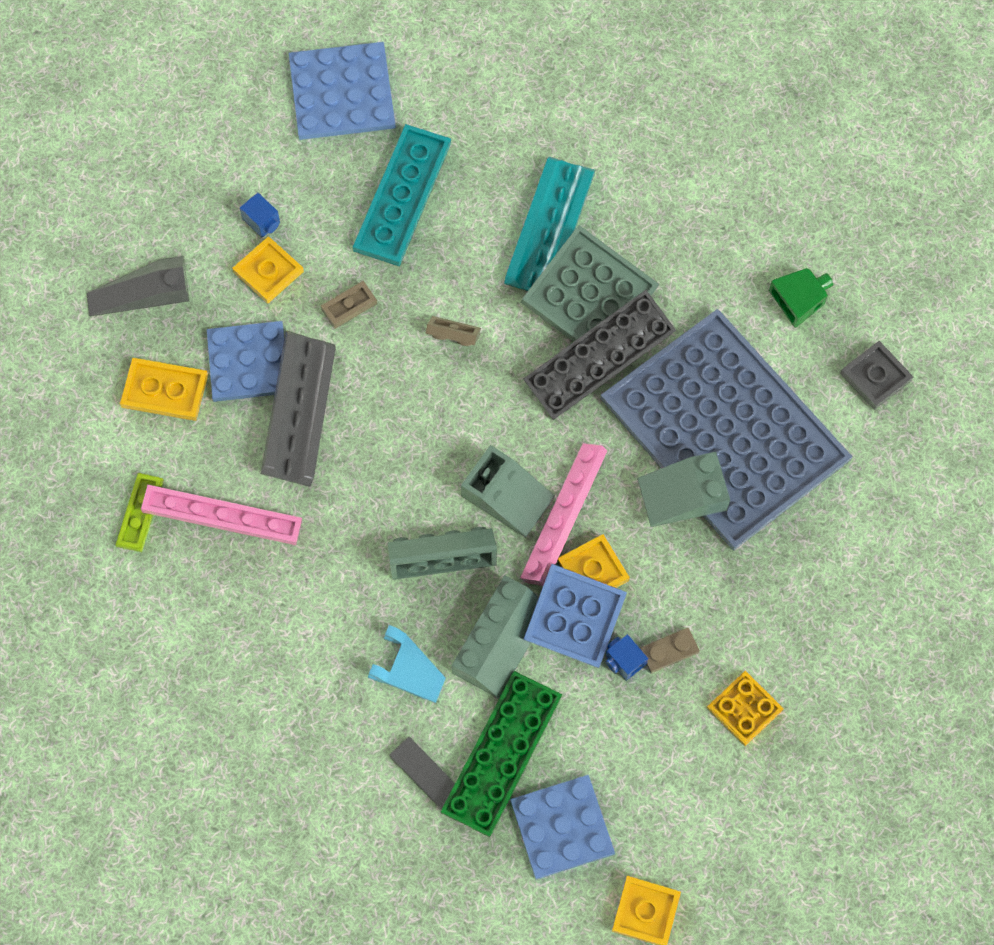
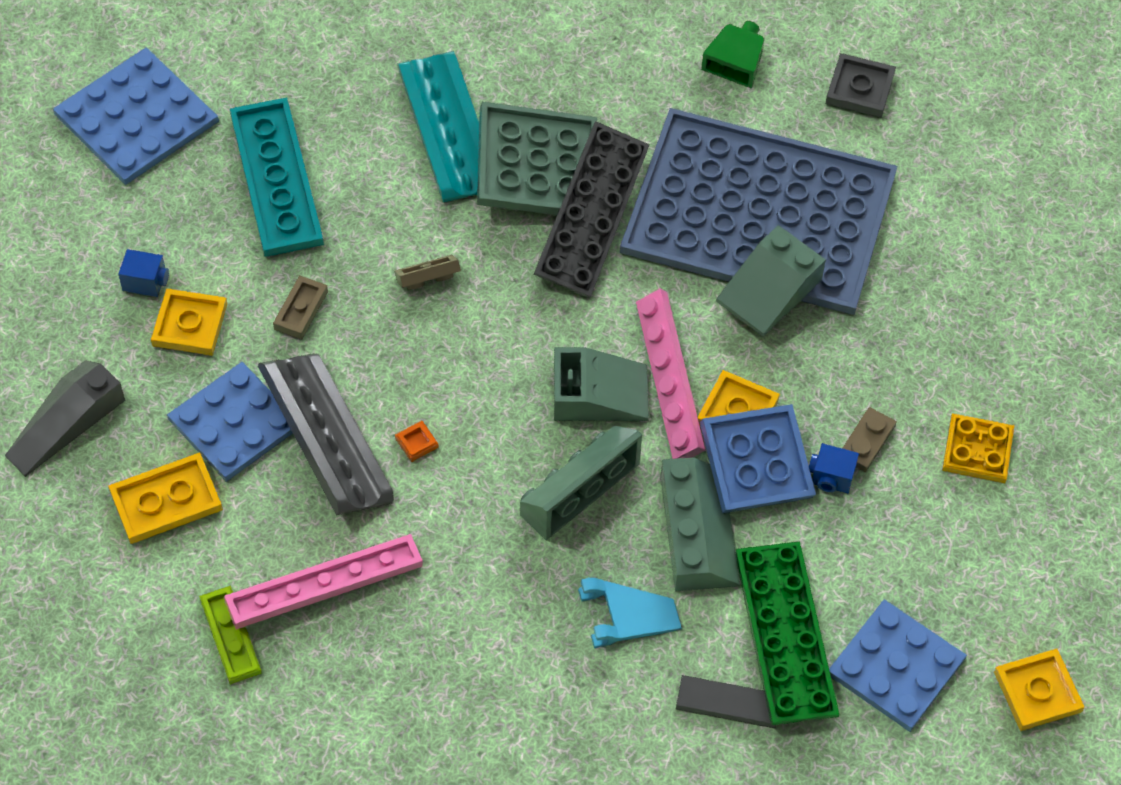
camera: 35 degrees left, 10 degrees down
(357, 452) = (416, 441): none -> orange tile

